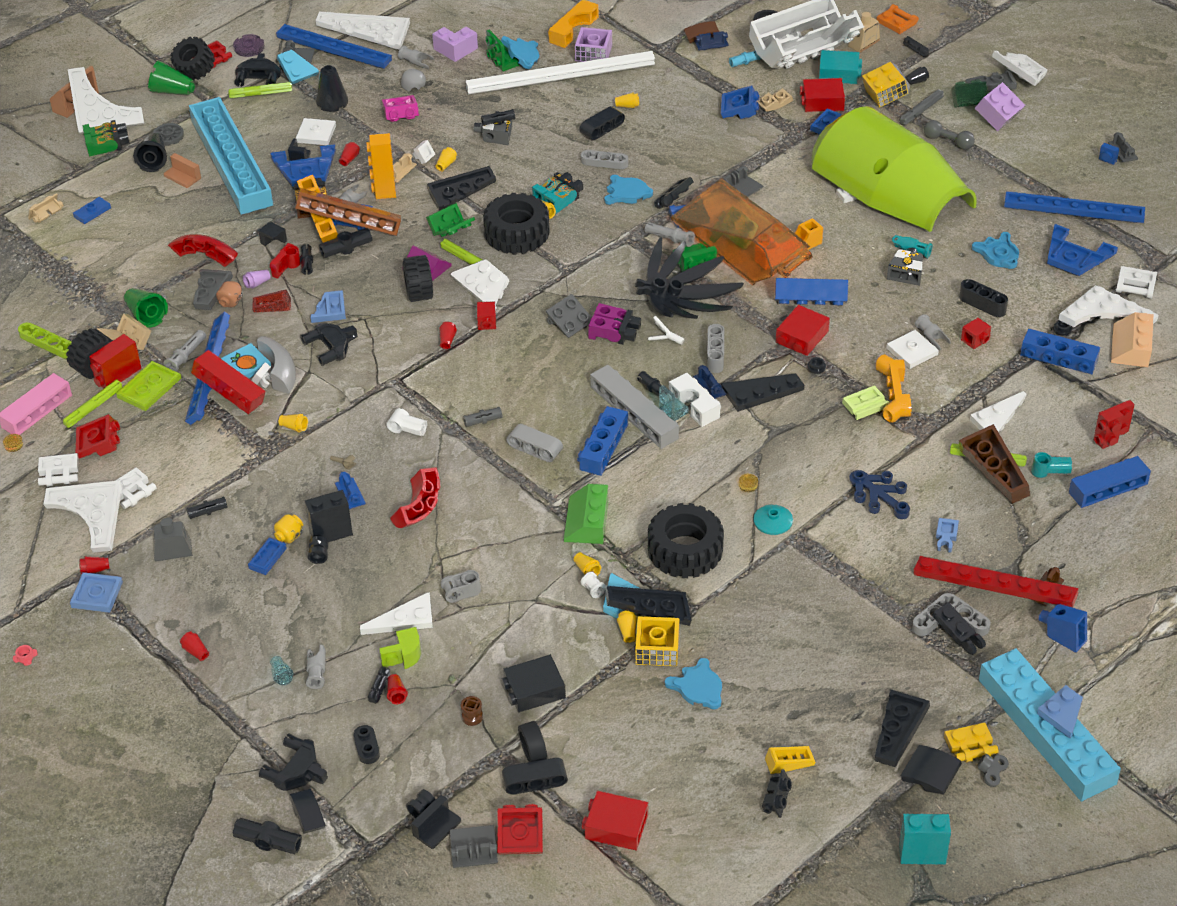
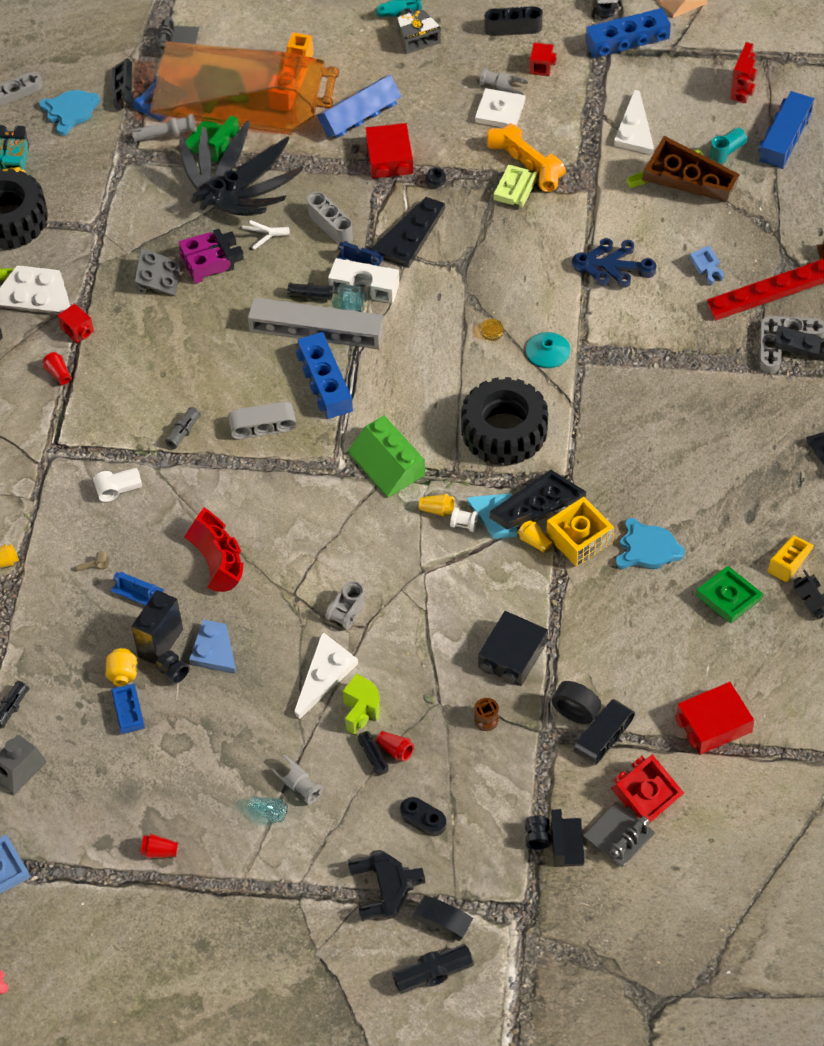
camera: 40 degrees left, 10 degrees up
(356, 556) = (213, 648): none -> medium blue wing
(718, 752) = (729, 594): none -> green plate

